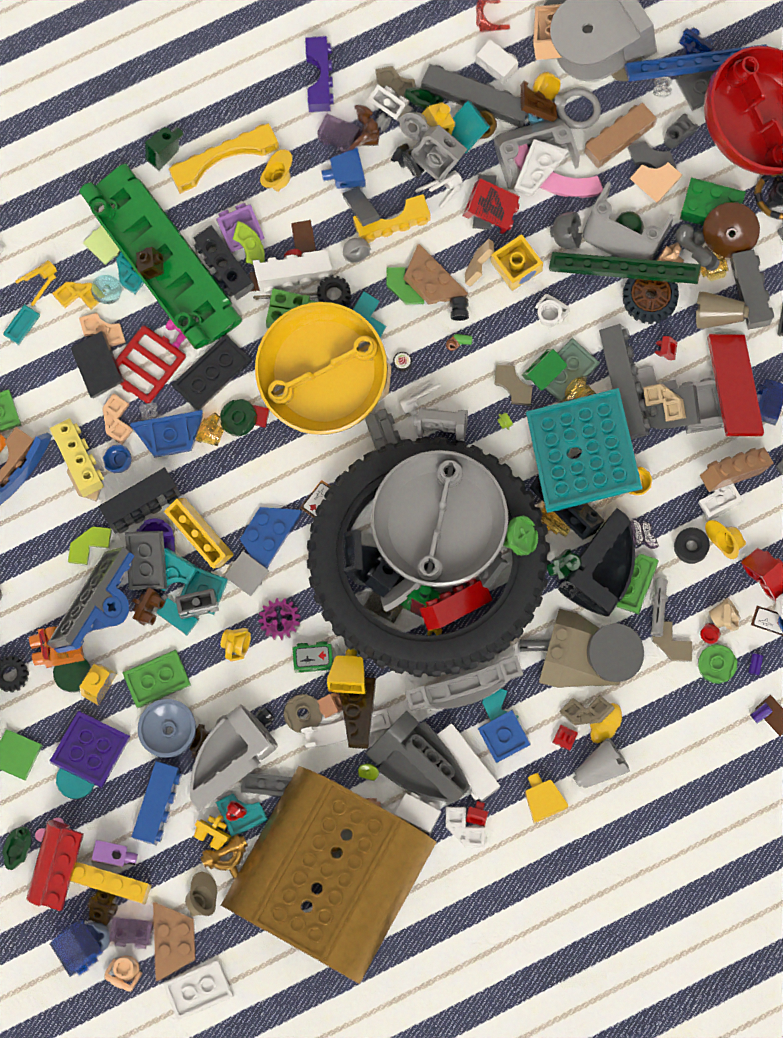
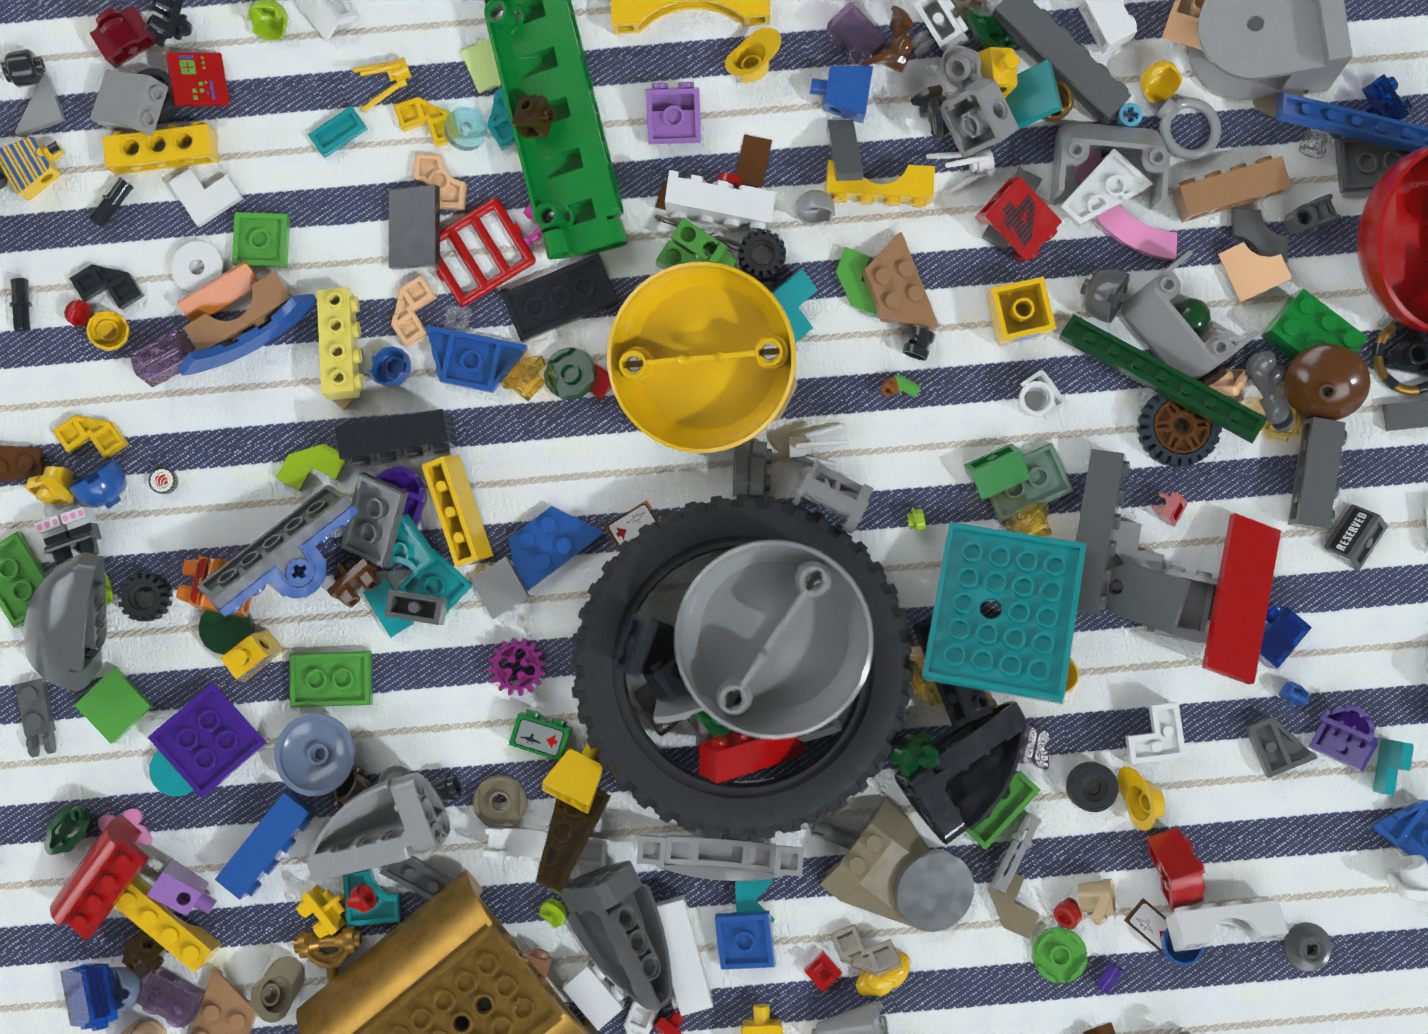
camera: 20 degrees right, 10 degrees up
(210, 238) = (628, 113): black brick -> none
(237, 642) = (448, 675): yellow piece -> none
(250, 242) = (679, 142): lime tile -> none
(330, 705) = (538, 808): nougat plate -> none
(402, 361) = (815, 384): tile -> none
(474, 269) = (960, 297): tan tile -> none
(519, 391) = (950, 485): dark tan tile -> none
(521, 536) = (874, 703): bright green tile -> none
(537, 103) = (1139, 101): reddish brown wing -> none
(672, 403) = (1148, 591): tan tile -> none
(719, 310) = (1264, 489): dark tan cone -> none
(736, 469) = (1196, 717): medium nougat brick -> none

